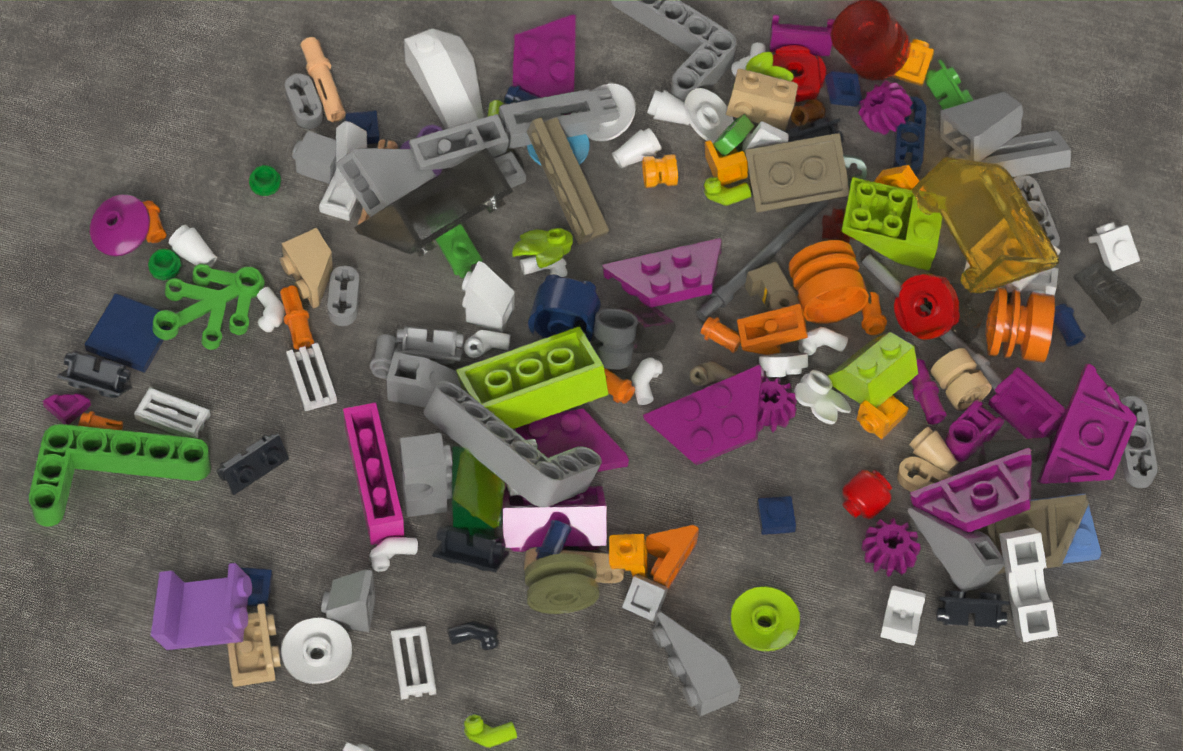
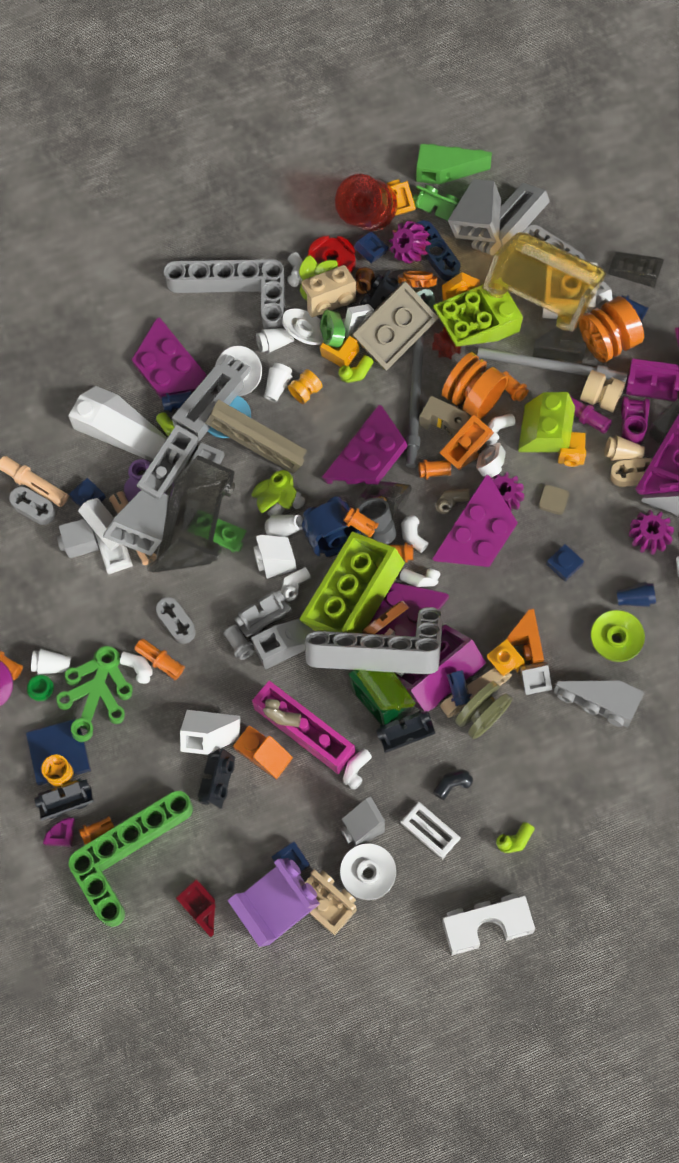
camera: 30 degrees left, 10 degrees up
(110, 342) = (52, 770): none -> light orange wheel
(133, 563) = (199, 905): none -> dark red slope
(165, 424) = (137, 795): white tile -> none
(264, 180) = (55, 580): green plate -> none
(281, 411) = (208, 731): none -> white slope
(305, 355) = (208, 682): white tile -> none
(310, 264) = (136, 616): tan slope -> none
(318, 472) = (263, 752): none -> orange slope
(353, 439) = (281, 717): none -> dark tan arm
(426, 474) = (343, 704): light grey arch -> none
(521, 279) = (283, 525): none -> white cone
(541, 427) = (385, 618): none -> dark orange tile
(591, 318) = (360, 522): none -> orange pin
(612, 426) = (419, 580): none -> white arm
(811, 37) = (321, 226): magenta hinge -> none
(816, 393) = (529, 465): white plate -> none
(819, 449) = (553, 500): none -> dark tan piece
(823, 597) = (637, 595): none -> dark blue cone
(863, 147) = (418, 278): none -> orange gear
(866, 494) = (609, 508): red head -> none
(944, 311) = (546, 344): red plate -> none
(993, 63) = (445, 164): none -> bright green slope
(1115, 245) = (617, 234): white bracket -> none

